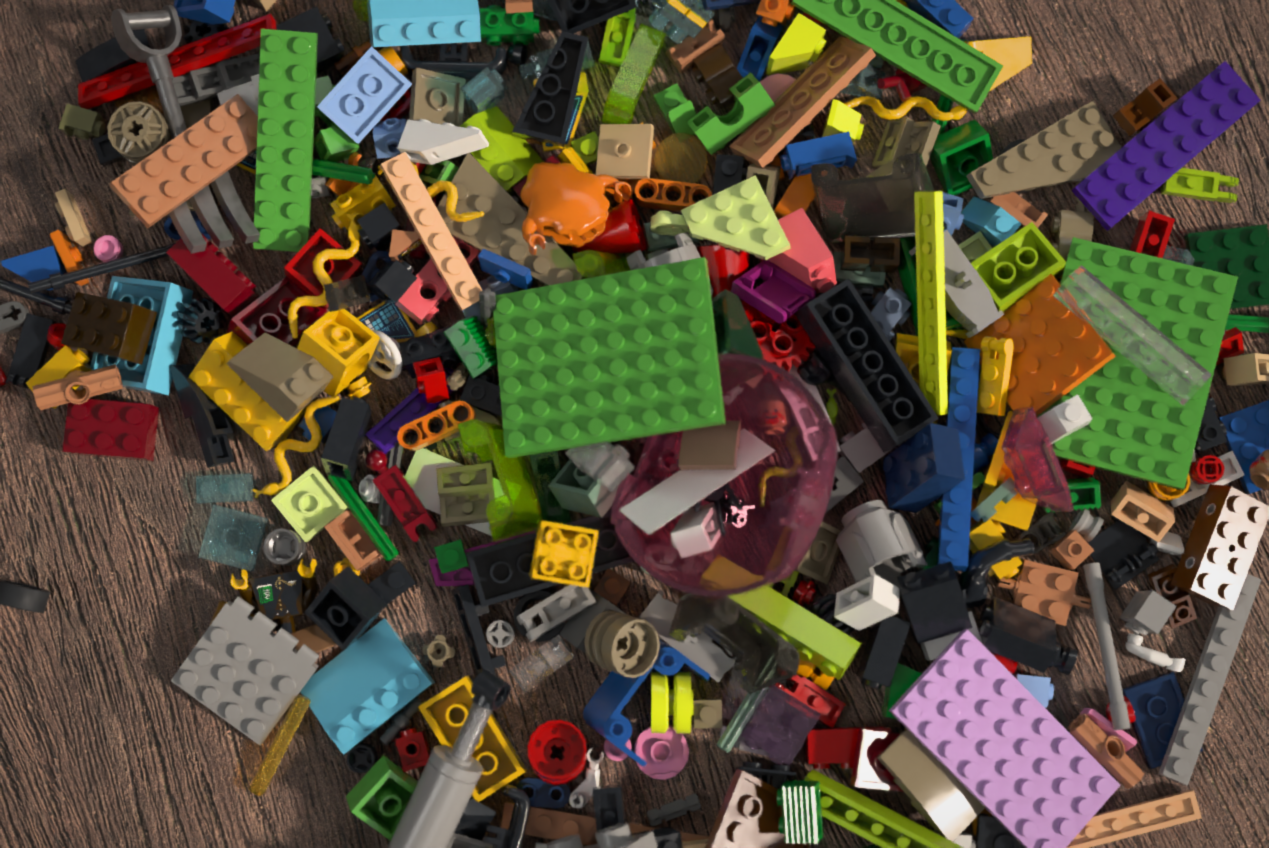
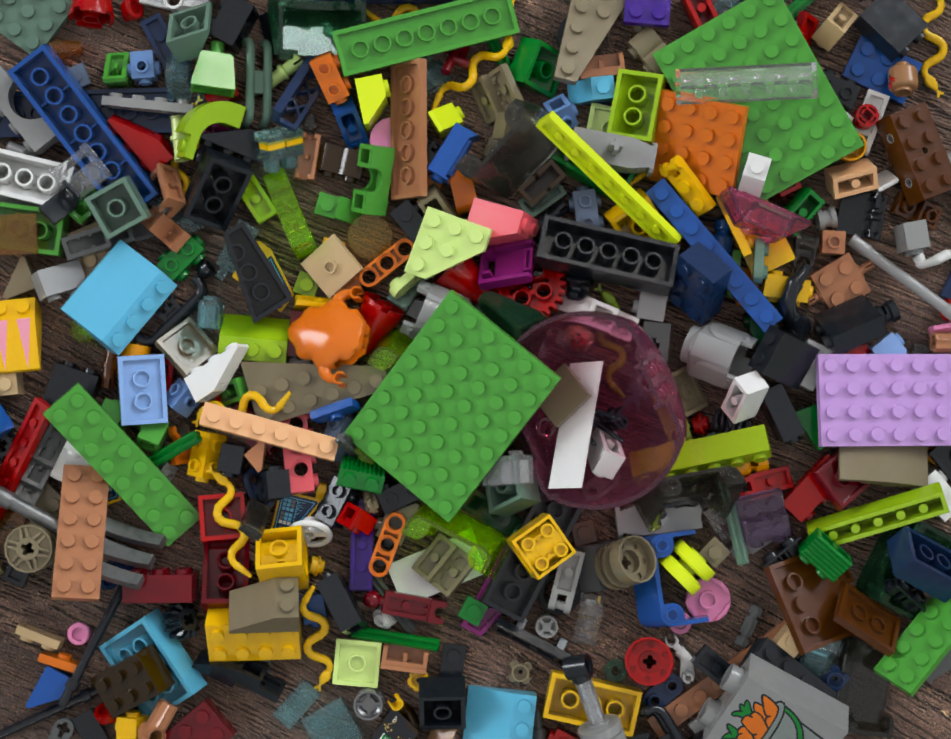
camera: 40 degrees left, 5 degrees up
(511, 732) = (615, 677): none -> clear green plate

